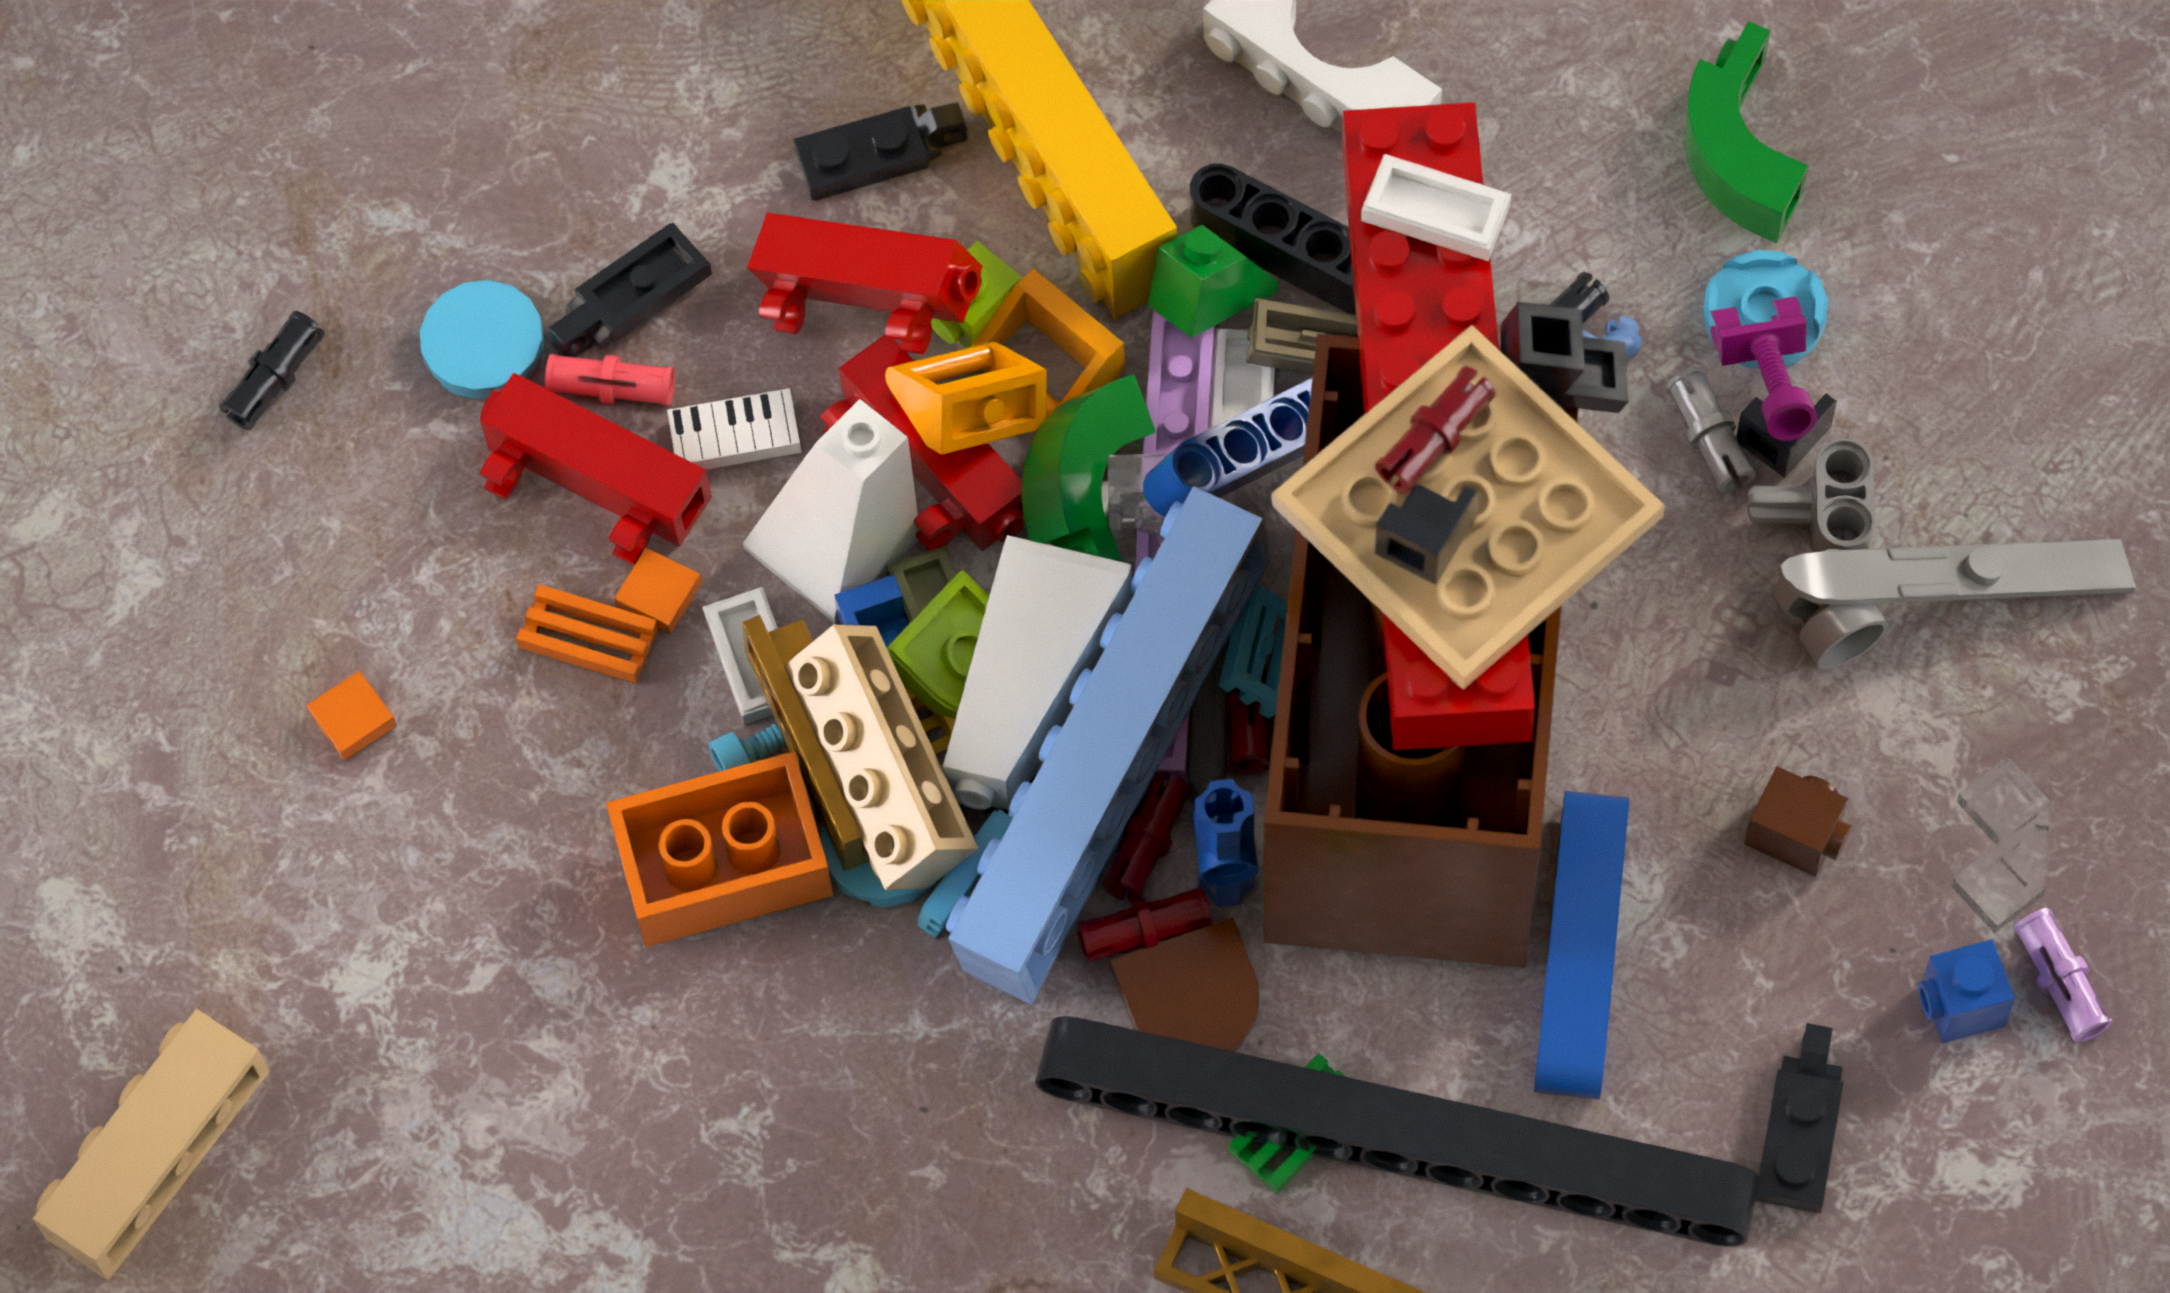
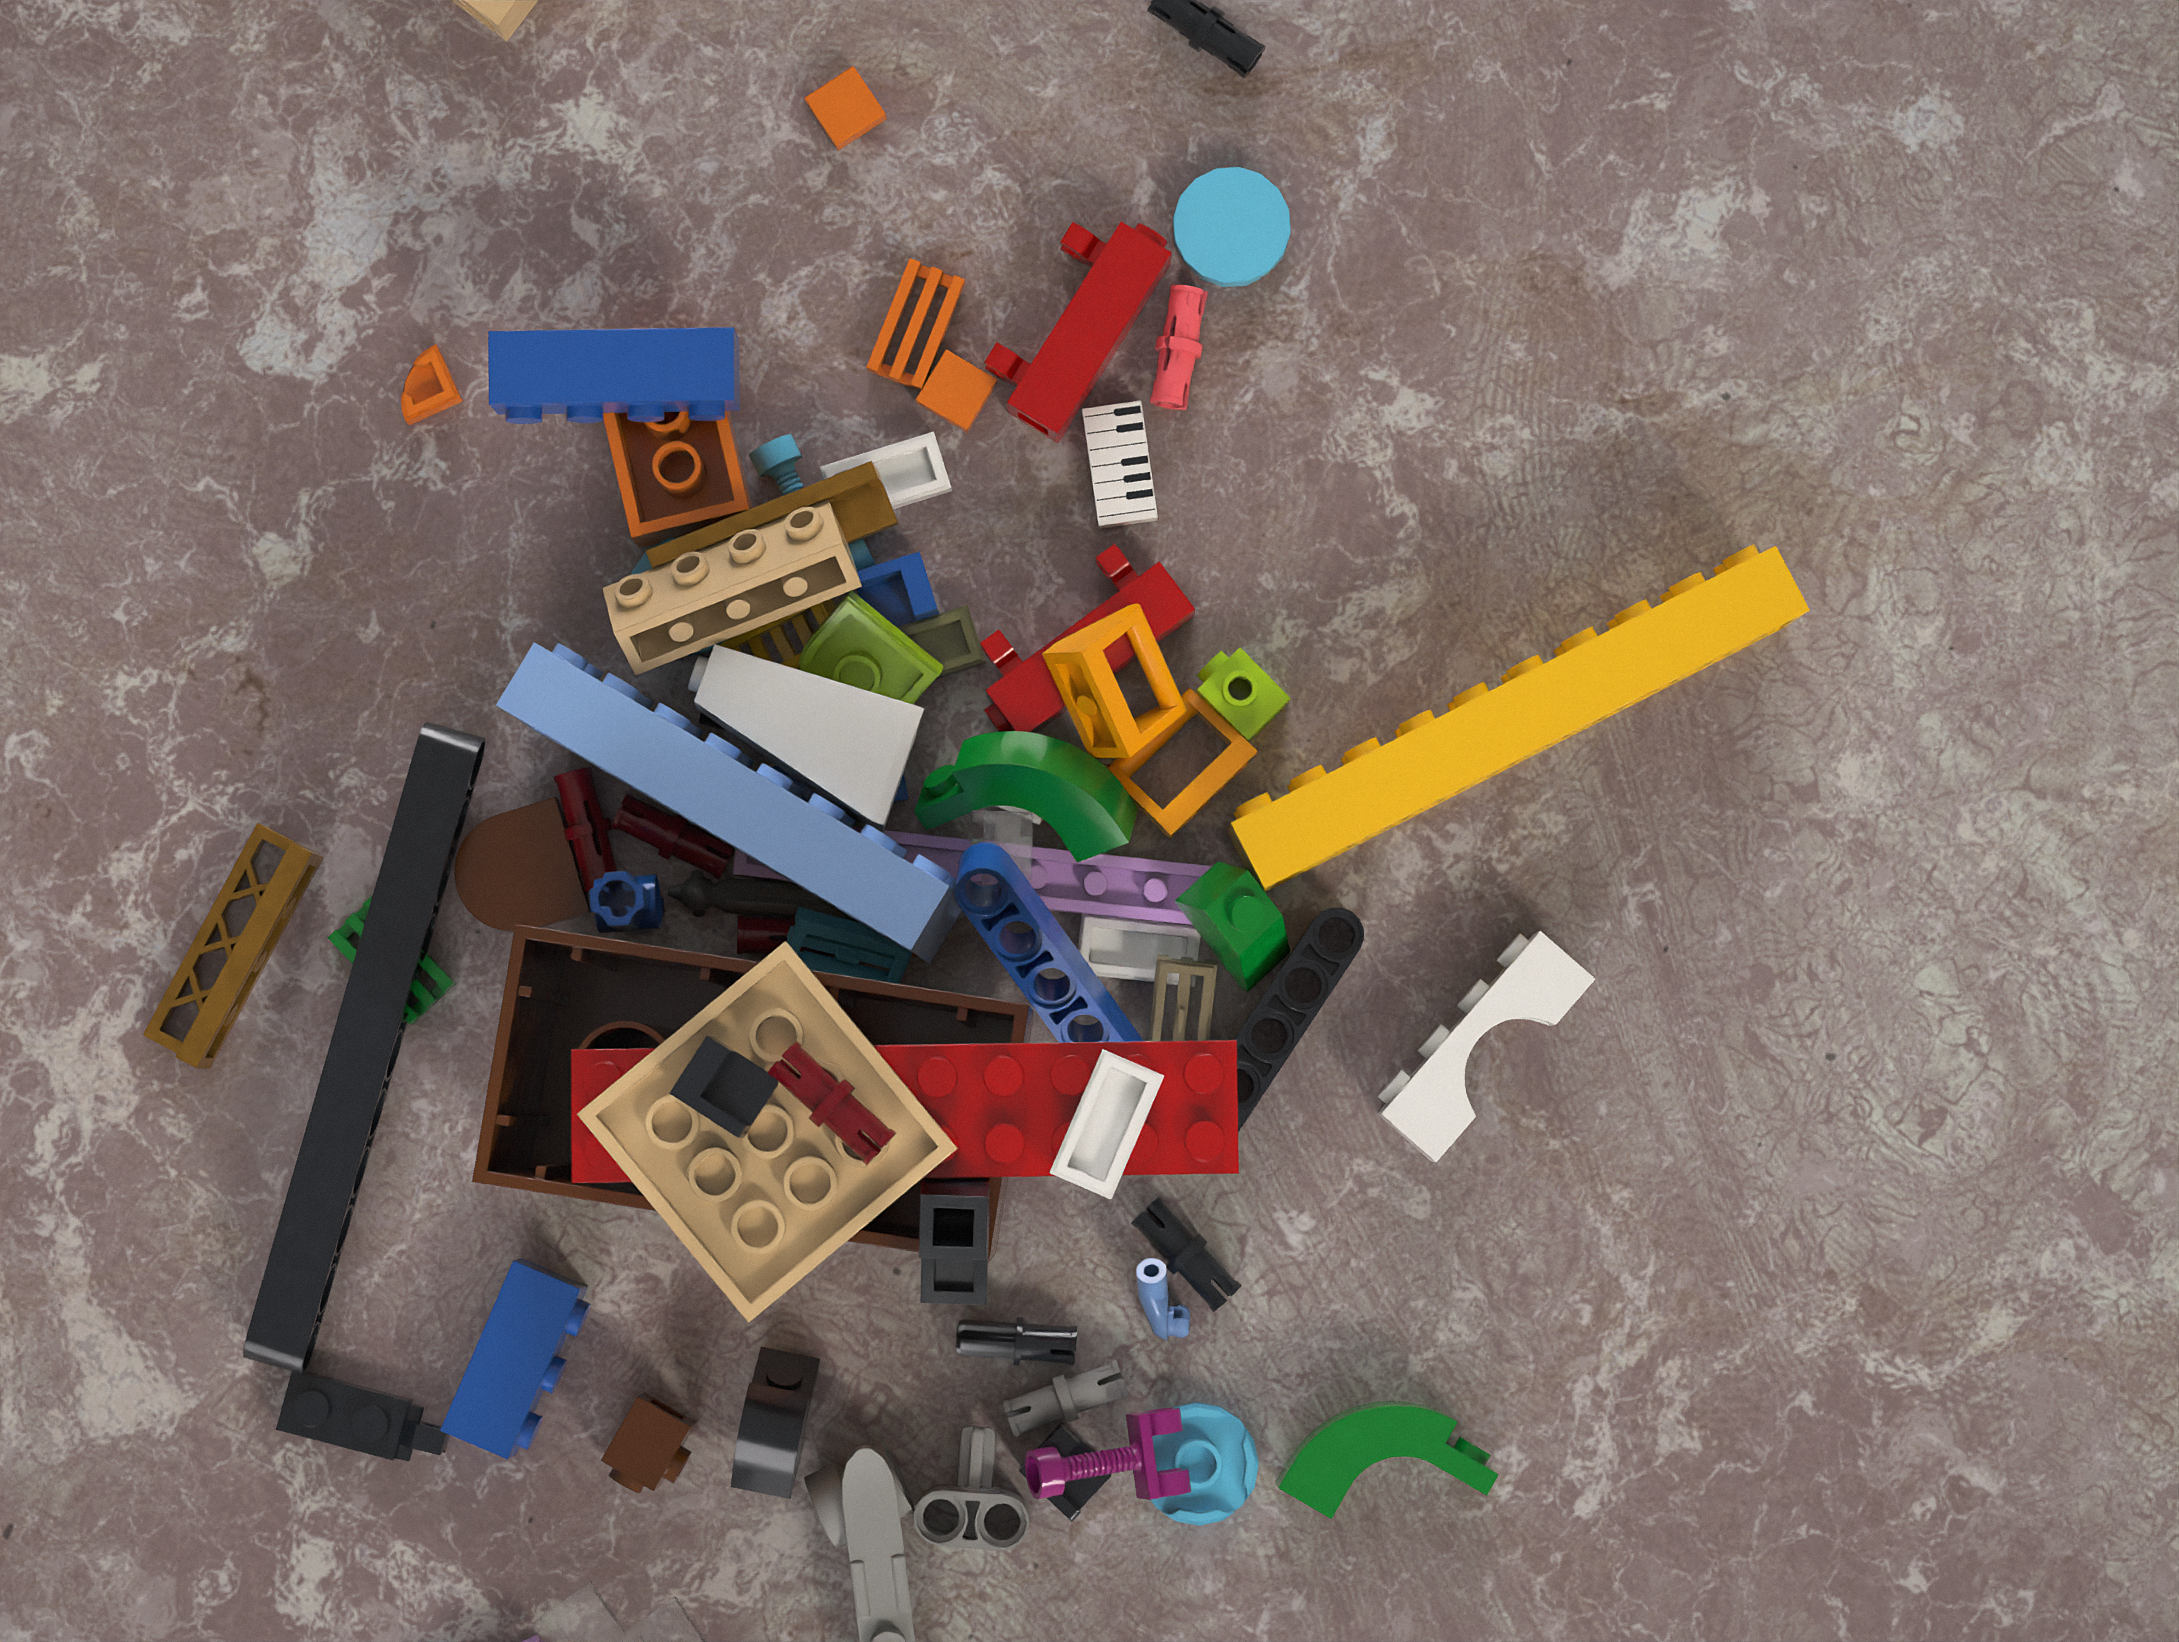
camera: 90 degrees right, 20 degrees up
(629, 292) = (1271, 368): black hinge -> none
(651, 877) = (614, 373): none -> blue brick
(658, 1124) = (428, 387): none -> orange tile
(841, 511) = (1003, 554): white slope -> none
(863, 268) = (1260, 589): red brick -> none
(877, 148) = (1420, 605): black hinge -> none
(960, 879) = (660, 682): medium azure tile -> none
(1582, 945) = (538, 1231): blue beam -> none
(1658, 468) = (1016, 1341): none -> black axle
(1721, 959) = (517, 1359): none -> blue brick
(1766, 686) = (774, 1423): none -> black brick
(1966, 991) = (466, 1581): blue brick -> none

